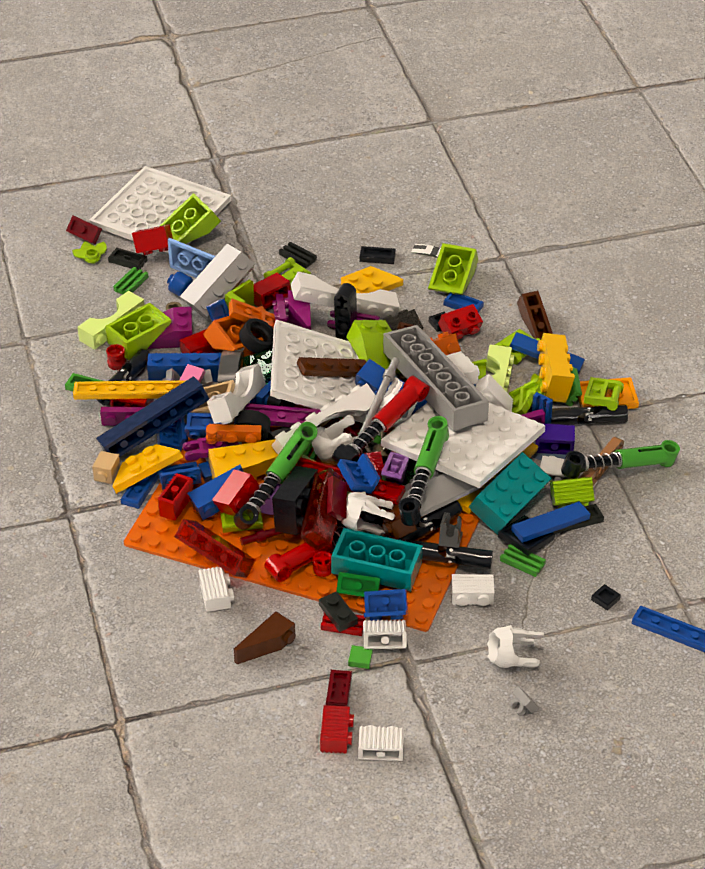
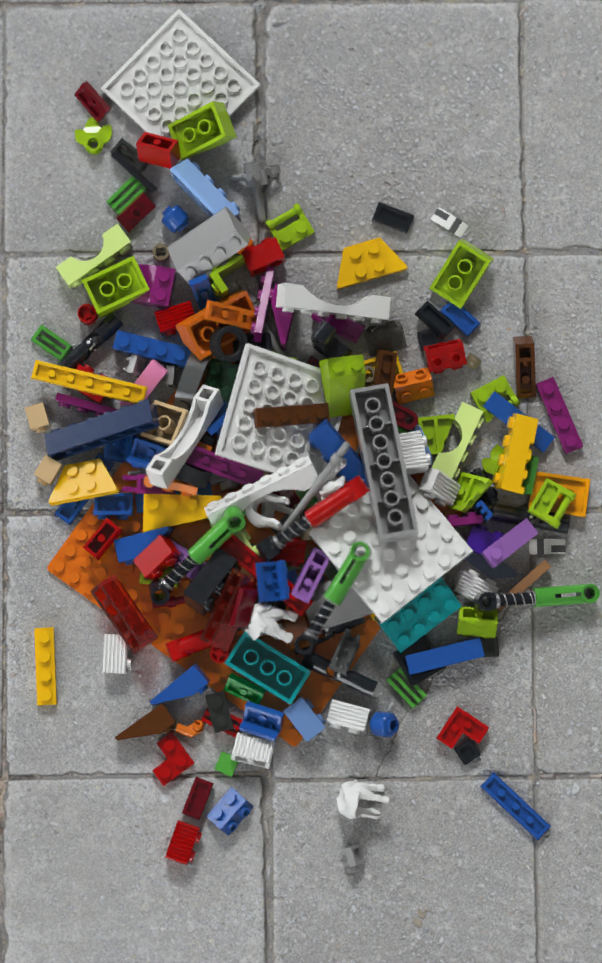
camera: 20 degrees right, 40 degrees up
(85, 432) = (38, 417): none -> tan brick
(142, 618) = (45, 666): none -> yellow plate
(144, 285) = (135, 212): none -> dark red plate
(145, 267) = (134, 172): none -> black bar
(247, 243) = (255, 176): none -> light grey piece
(294, 596) = (186, 685): none -> blue slope
(301, 256) = (300, 184): pearl dark grey tile -> none
(304, 665) = (177, 759): none -> red plate
(313, 637) = (191, 730): none -> orange arm
(378, 693) = (230, 811): none -> bracket
(381, 743) = (217, 868): white brick -> none
(429, 595) = (305, 719): none -> medium blue brick
(439, 305) = (435, 320): none -> black tile
(488, 324) = (472, 361): none -> dark tan hinge
(512, 585) = (384, 724): none -> blue head
(574, 425) = (509, 543): none -> medium lavender slope
(584, 348) = (559, 415): none -> magenta plate
(589, 573) = (460, 723): none -> red plate
(607, 435) = (547, 546): none -> white sticker

